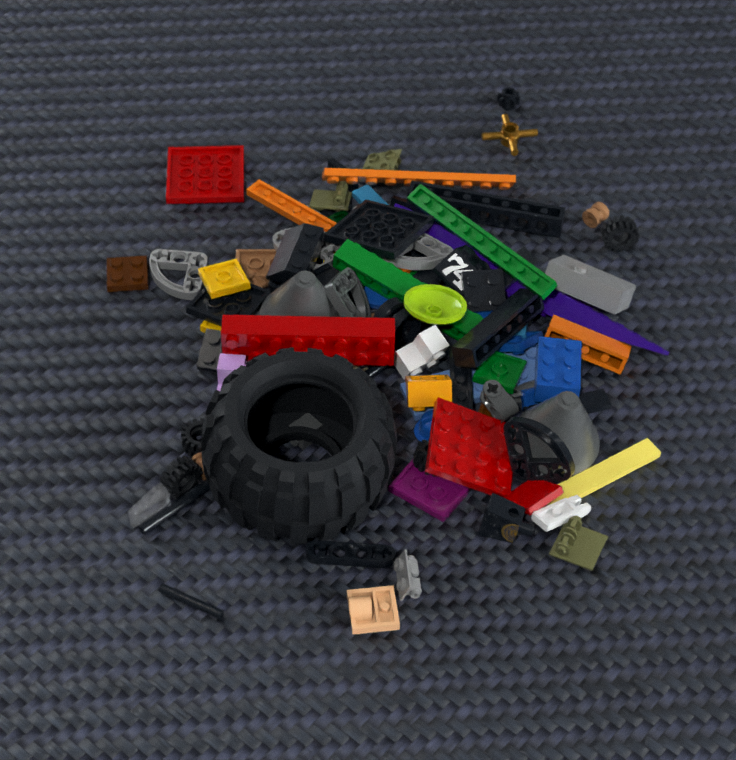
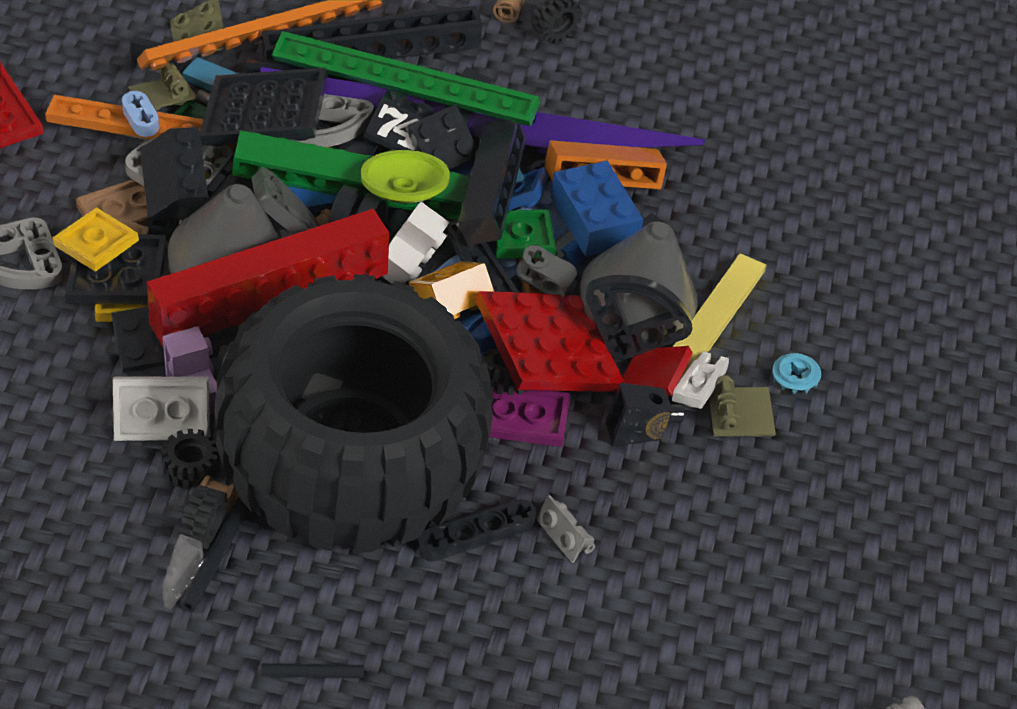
camera: 30 degrees left, 0 degrees up
(190, 395) = (159, 407): none -> white tile
(301, 208) = (135, 115): none -> light blue beam
(373, 609) = (551, 586): light nougat plate -> none
(590, 284) = (566, 89): light grey brick -> none
(642, 530) = (800, 365): none -> medium azure gear

